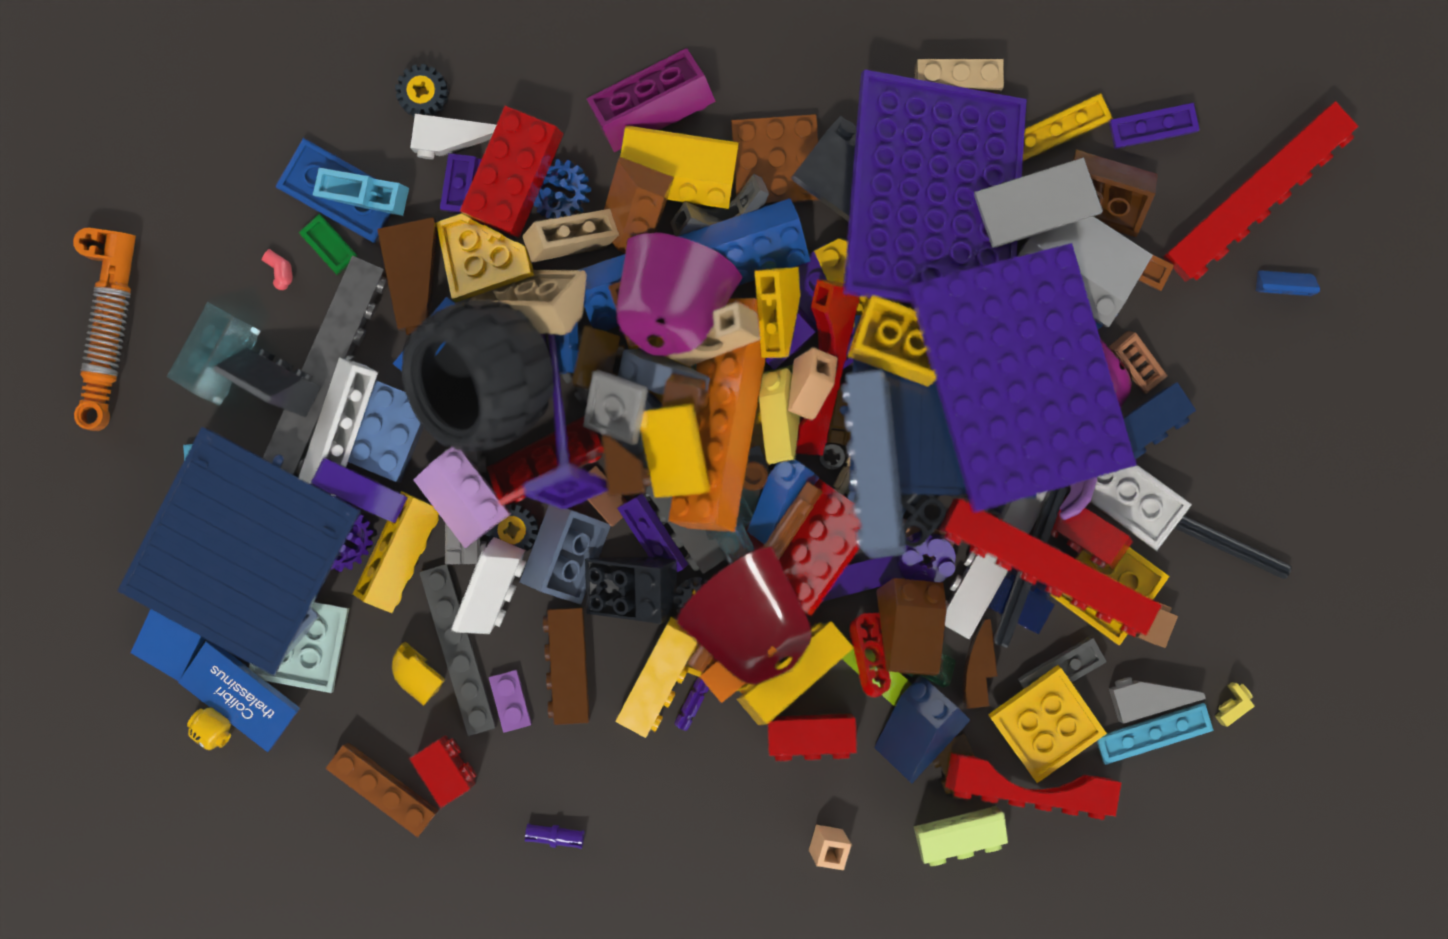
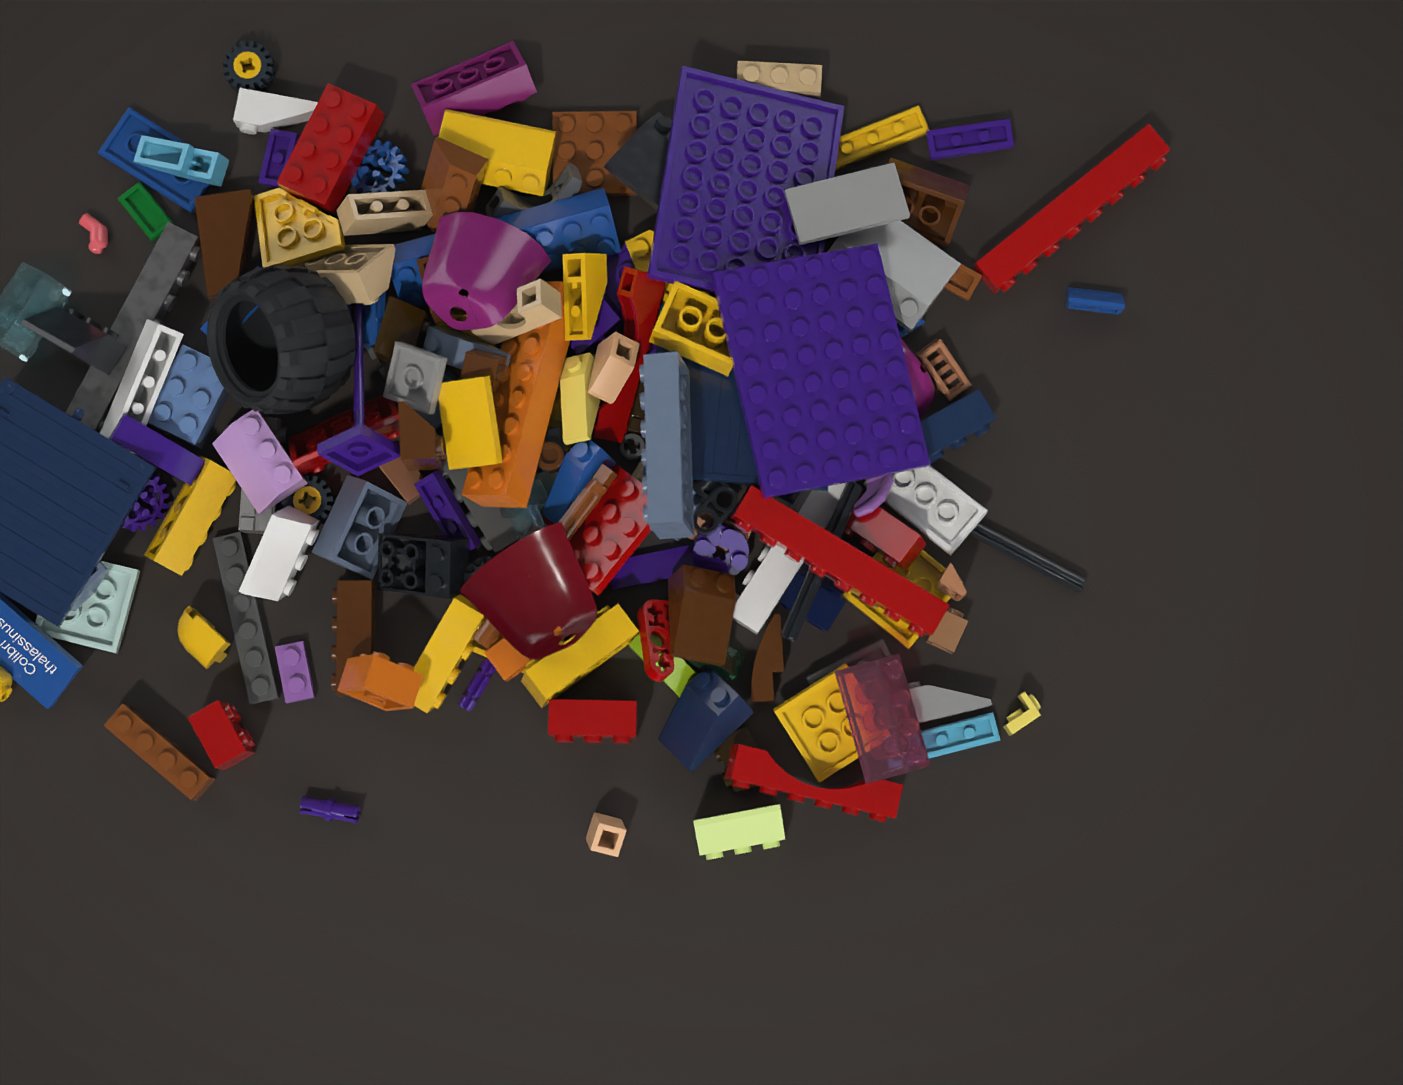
camera: 10 degrees right, 5 degrees down
(599, 712) = (380, 682): none -> orange brick
(1099, 720) = (882, 718): none -> clear pink slope
(1160, 581) = (951, 584): none -> nougat slope

